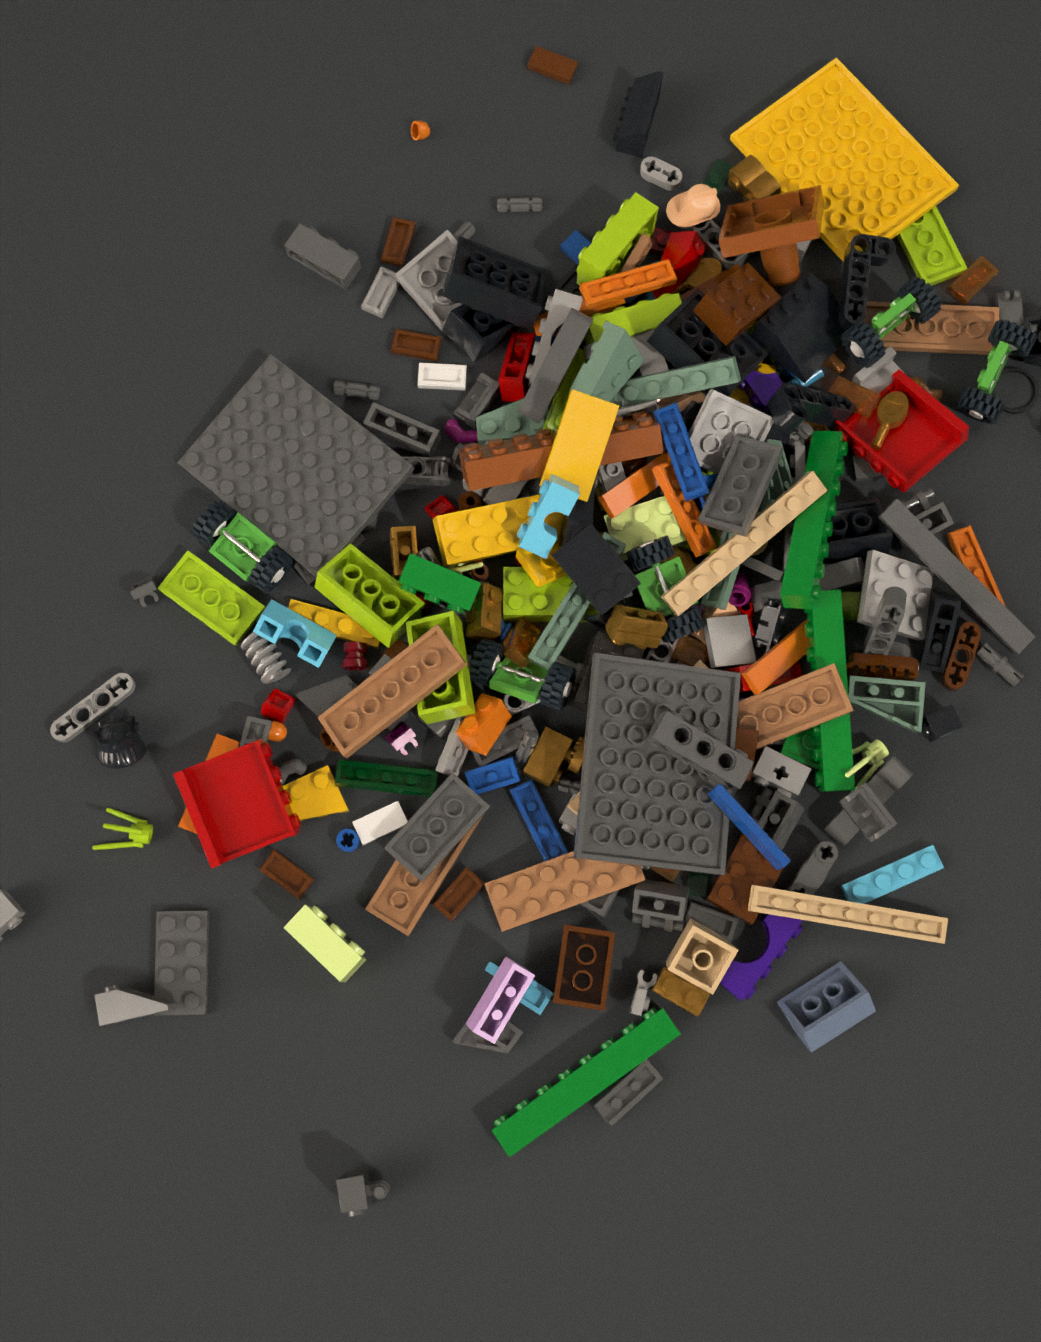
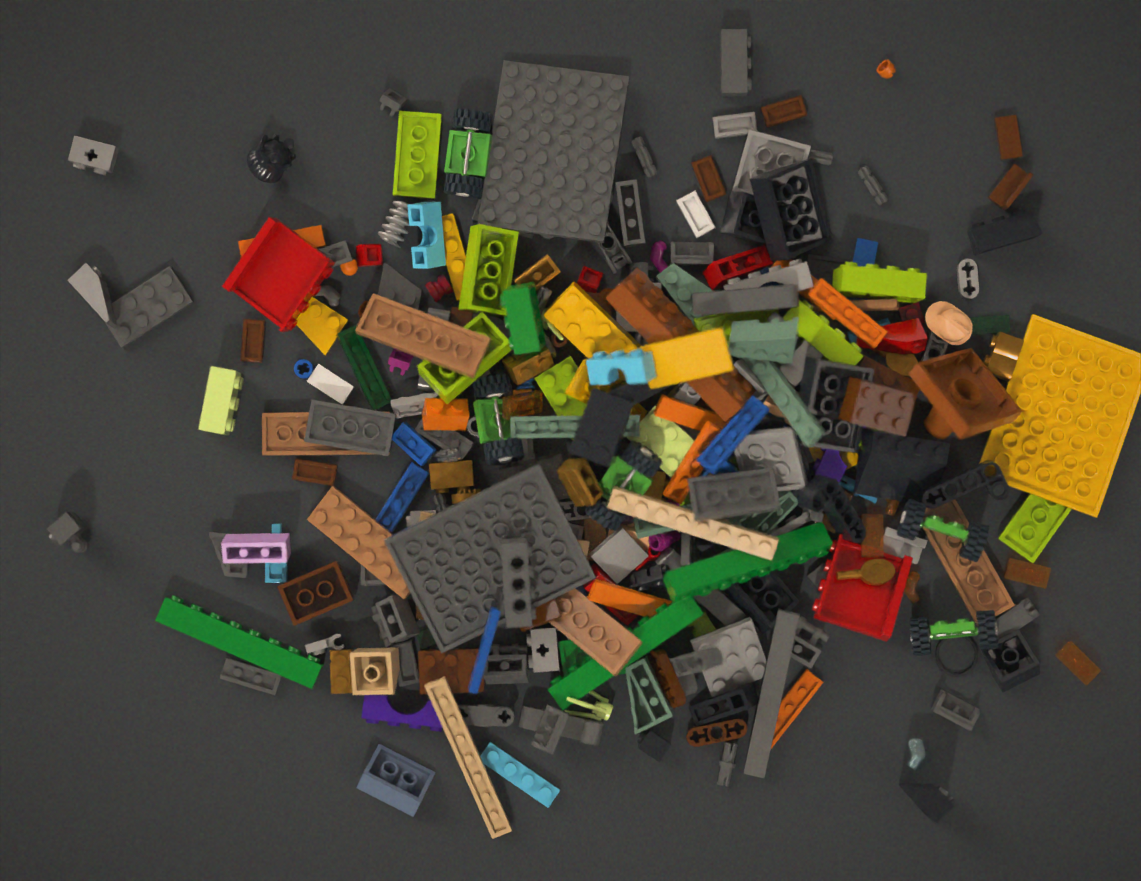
camera: 55 degrees right, 10 degrees up
(94, 709) = (283, 125): light grey beam -> none
(140, 832) = (216, 216): lime plant -> none
(600, 88) = (1010, 187): none -> reddish brown panel

